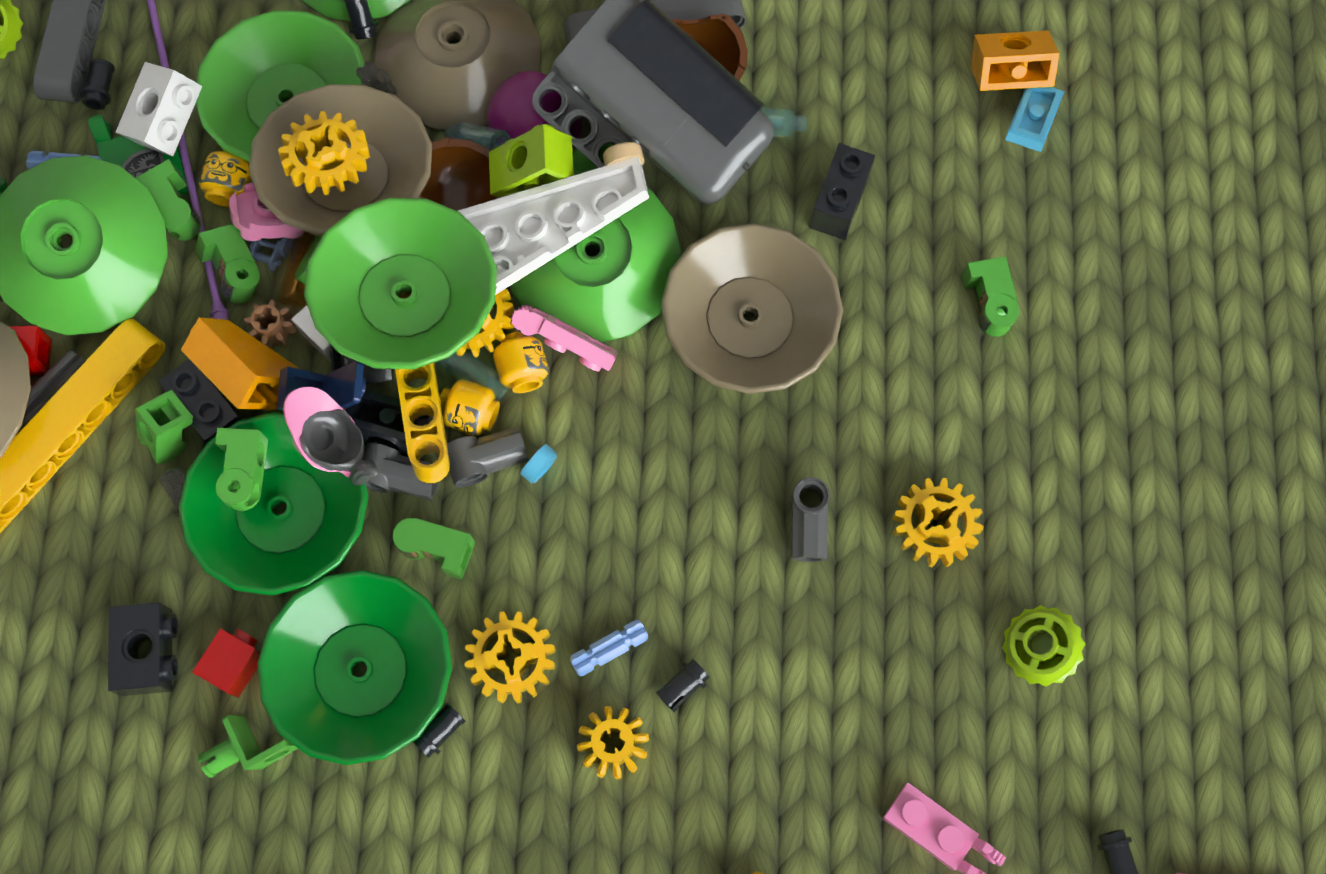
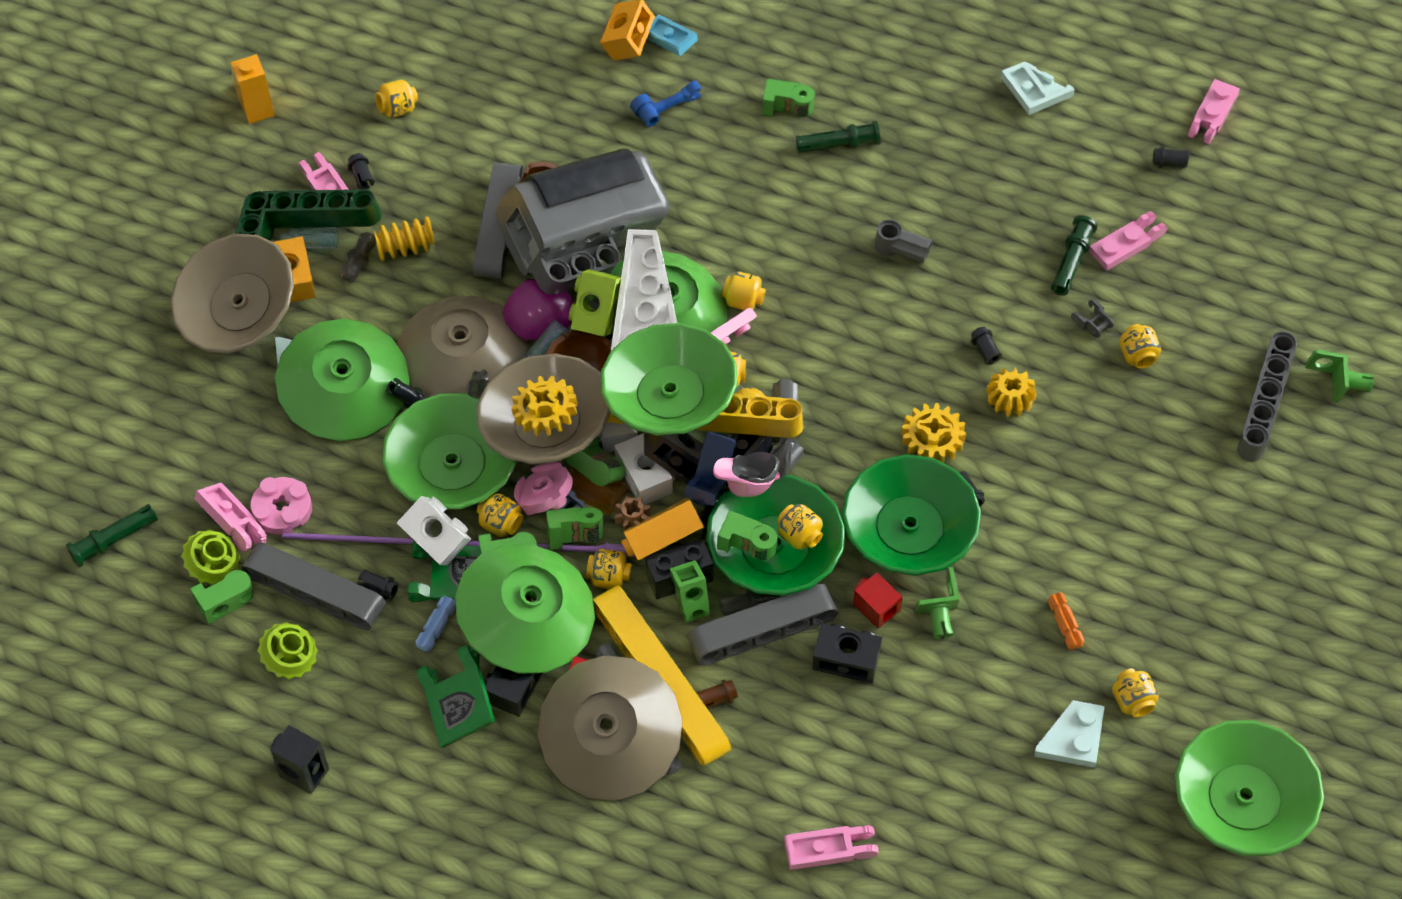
camera: 70 degrees left, 15 degrees down
(51, 517) = (718, 694): none -> reddish brown pin
(154, 531) = (761, 624): none -> dark grey beam
(178, 319) = (608, 568): none -> yellow head
(274, 527) = (800, 526): none -> yellow head
(425, 539) = (837, 455): bright green leg -> none
(539, 464) = (804, 379): medium azure tile -> none
(609, 647) = (945, 380): light blue axle -> none
(622, 152) = (620, 242): tan tile -> none
(648, 344) = (743, 291): none -> yellow head
(756, 273) = (750, 204): dark tan dish -> none
(777, 839) = (1084, 323): none -> dark grey piece
(842, 191) = (679, 152): black brick -> none
(898, 763) = (1076, 245): none -> dark green pin
(900, 133) = (648, 110): none -> blue brick
(947, 535) = (929, 176): yellow gear -> none
(964, 397) = (851, 136): none -> dark green pin
(1054, 645) = (1028, 150): lime piece -> none
(1161, 621) = (1034, 88): none -> light aqua wing

